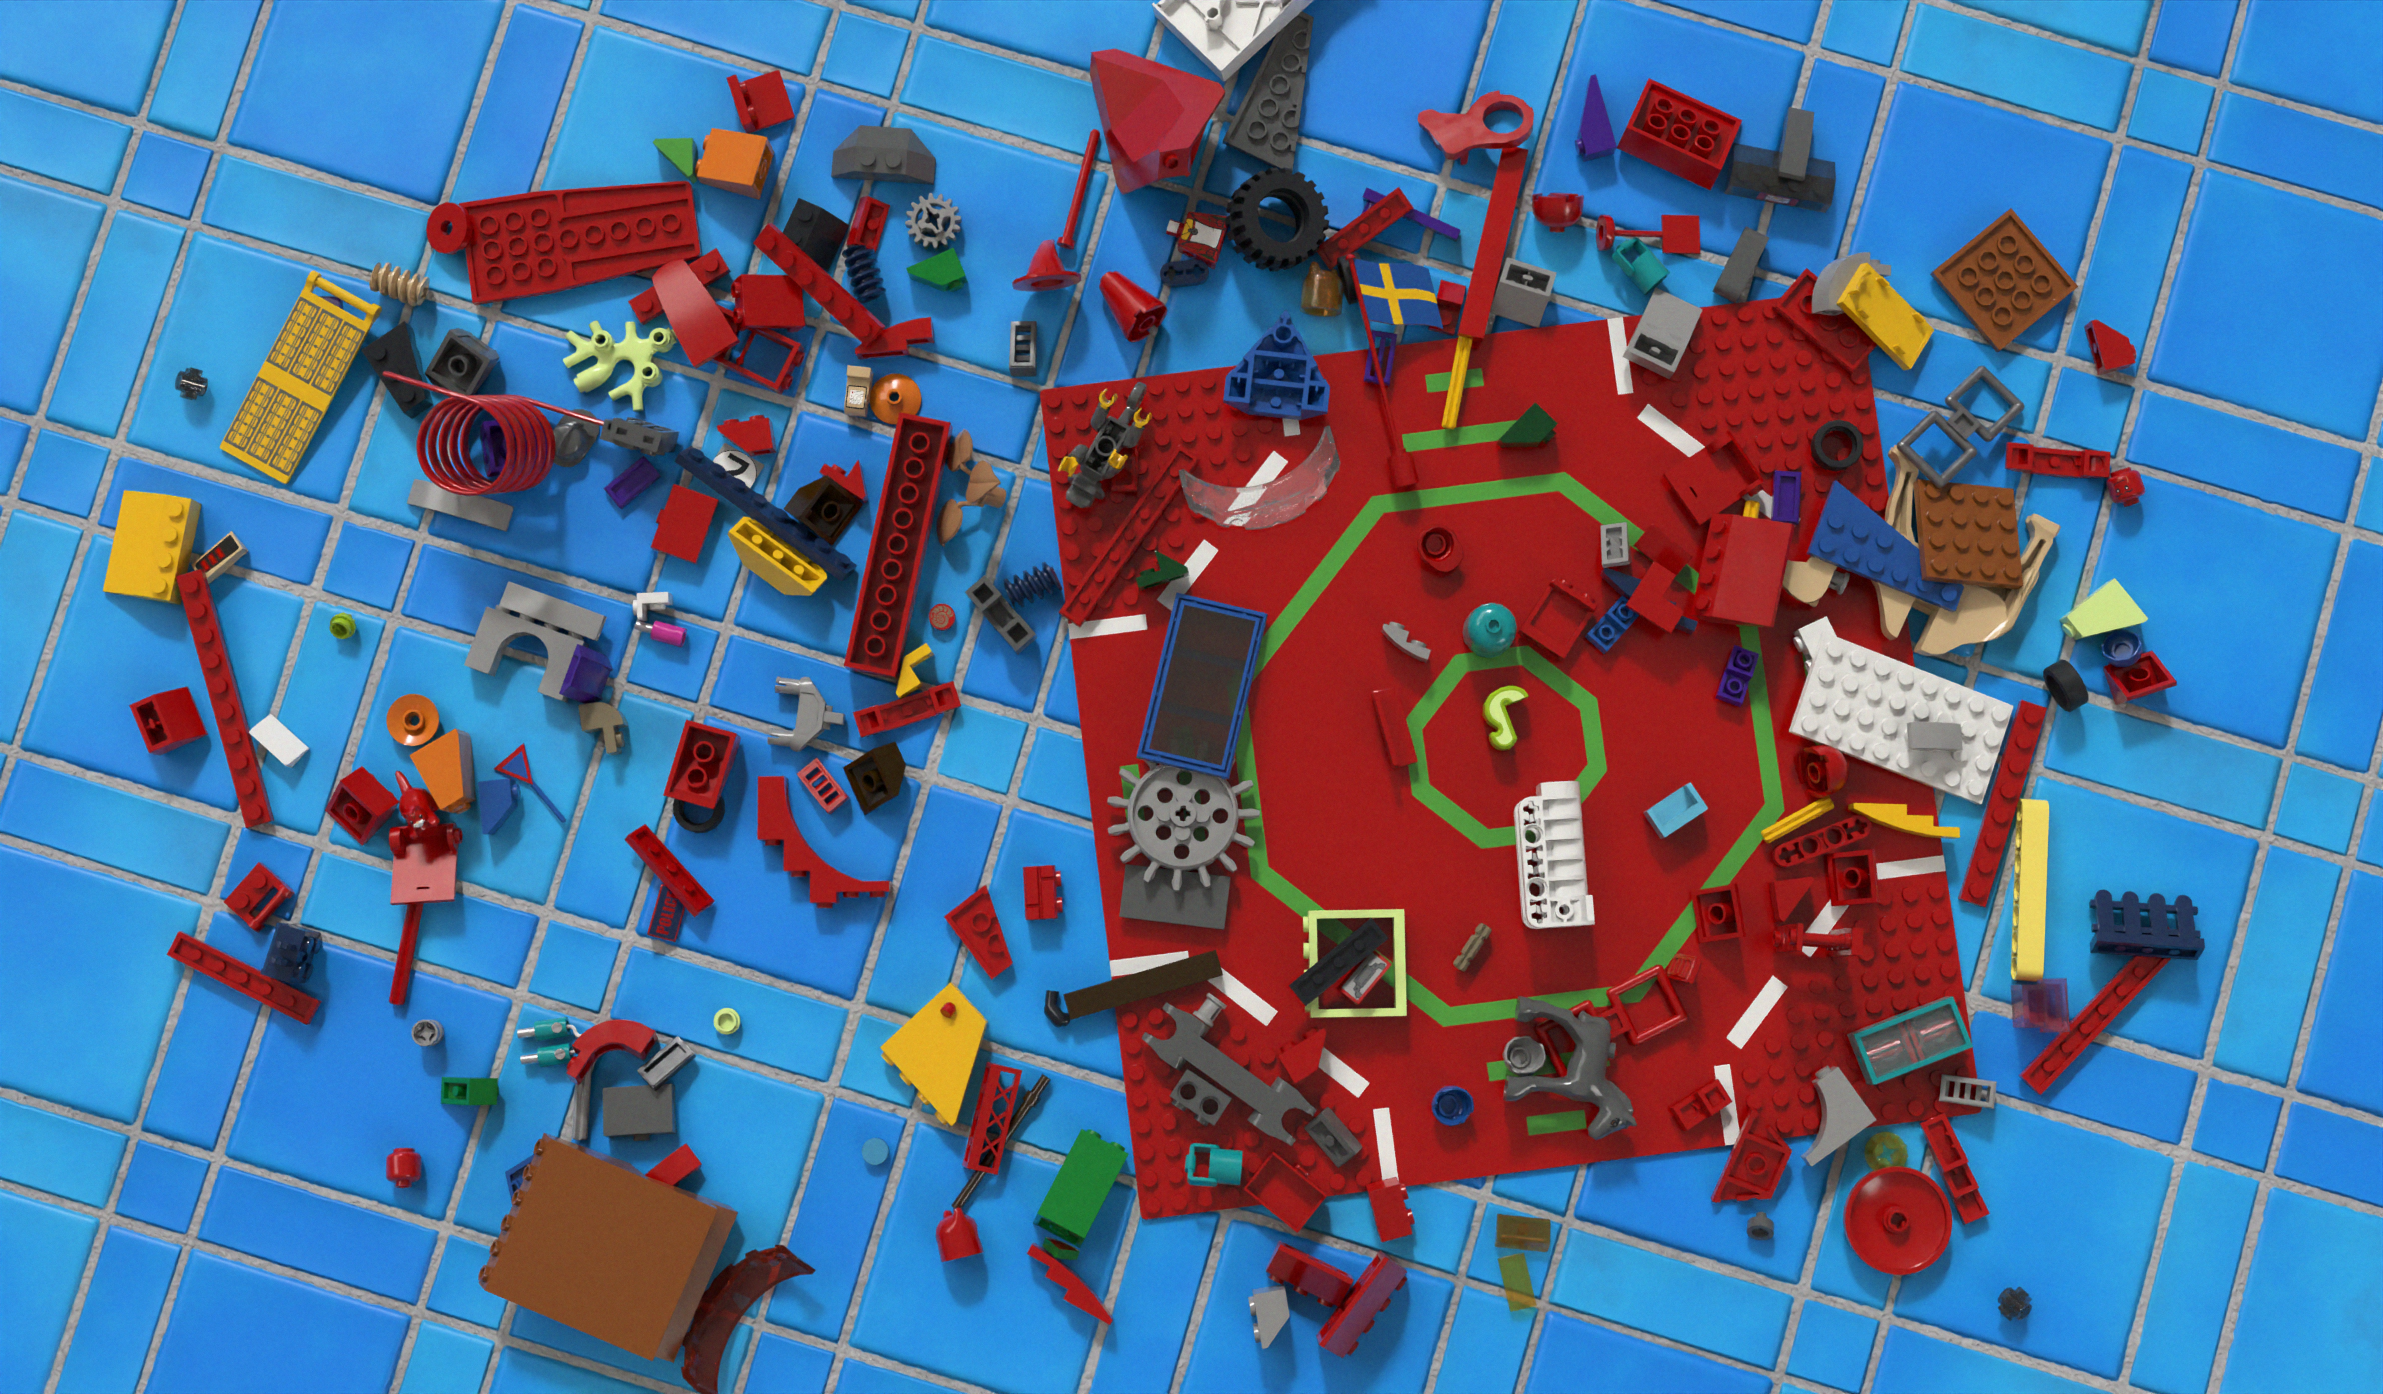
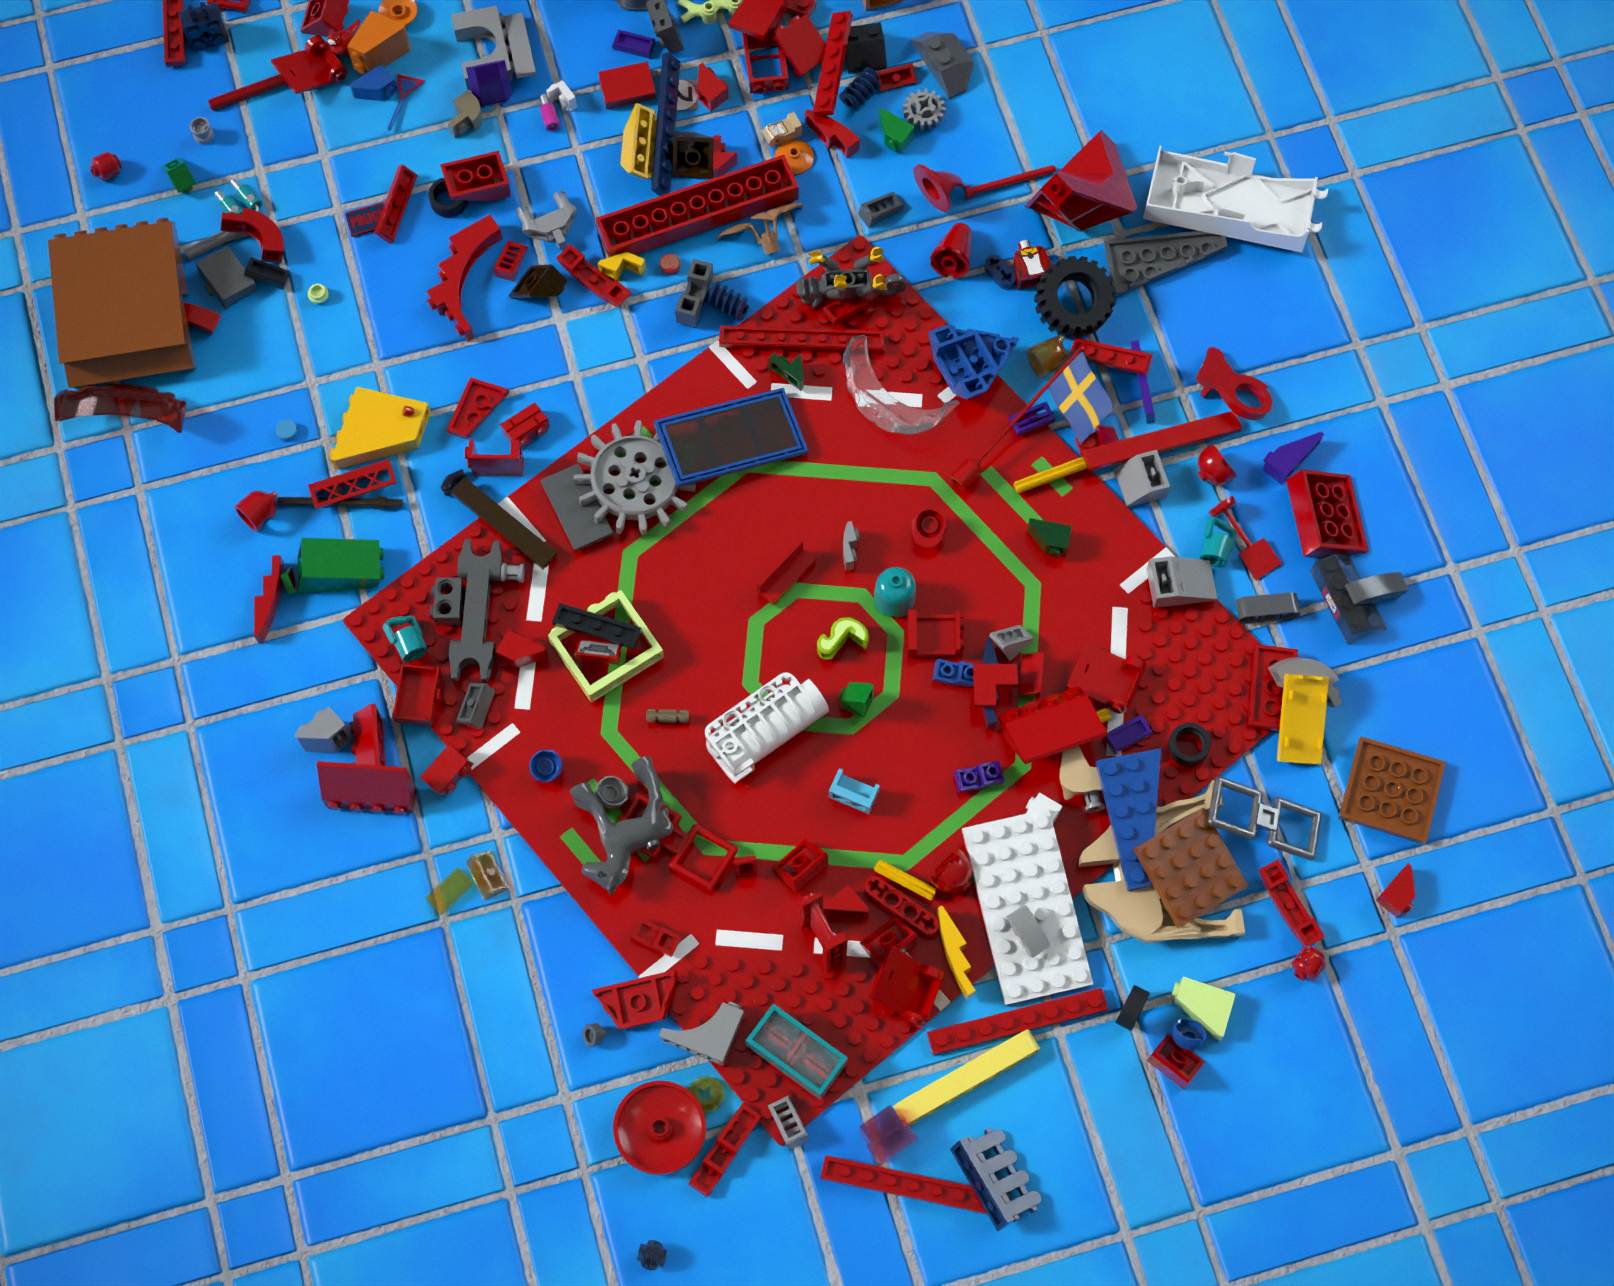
camera: 55 degrees right, 15 degrees down
(1086, 931) = (496, 464): none -> panel
(1580, 744) = (856, 698): none -> green slope
(1914, 889) = (907, 986): none -> red door

